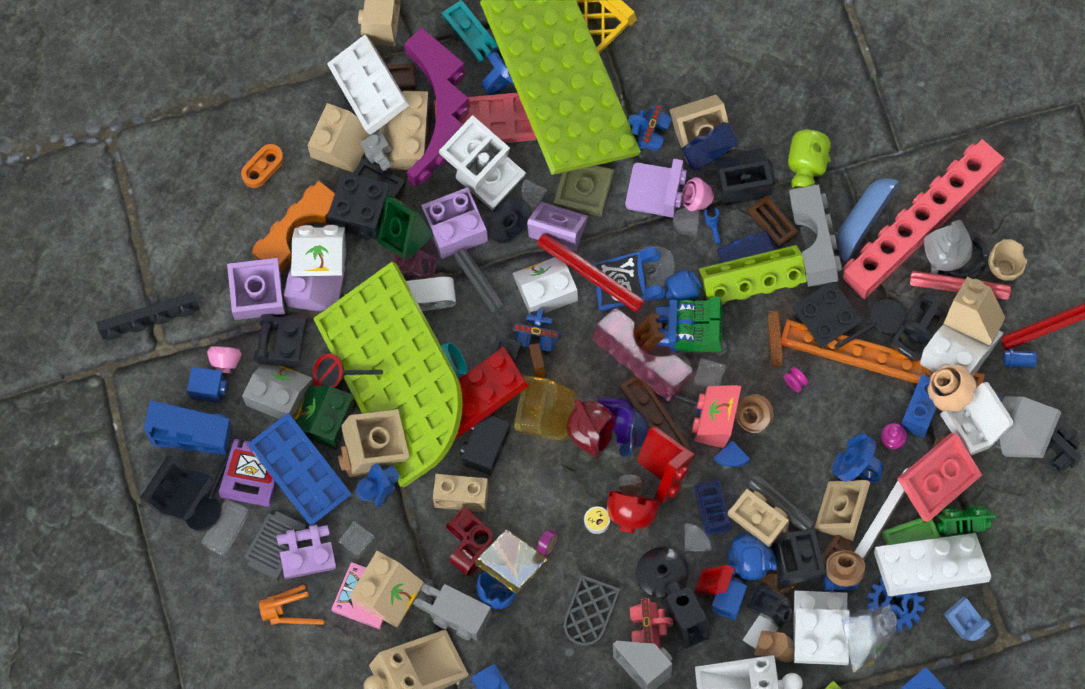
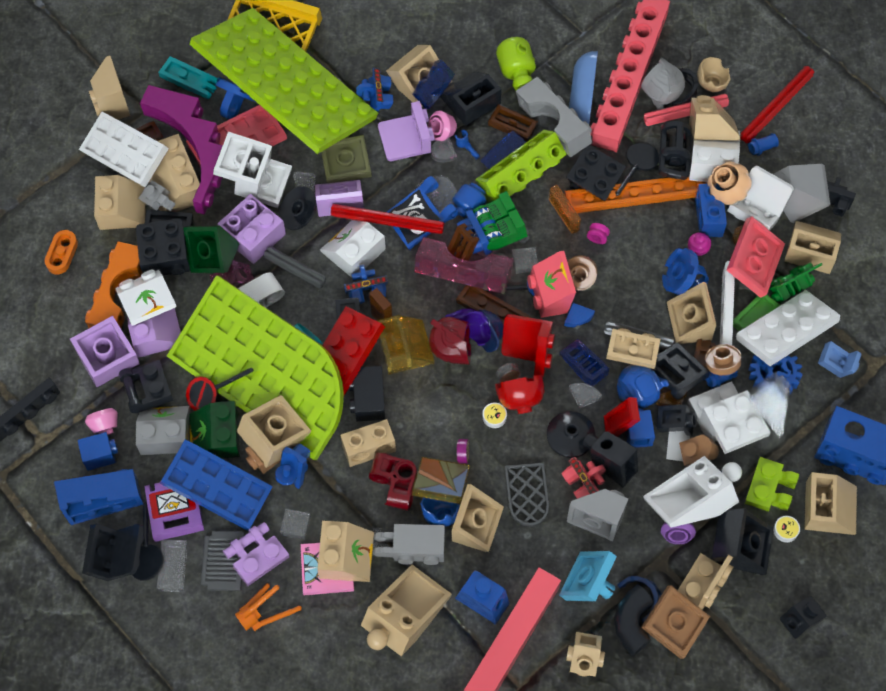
camera: 30 degrees left, 5 degrees down
(526, 615) = (476, 520): none -> tan slope
(1008, 490) = (813, 245): none -> tan slope

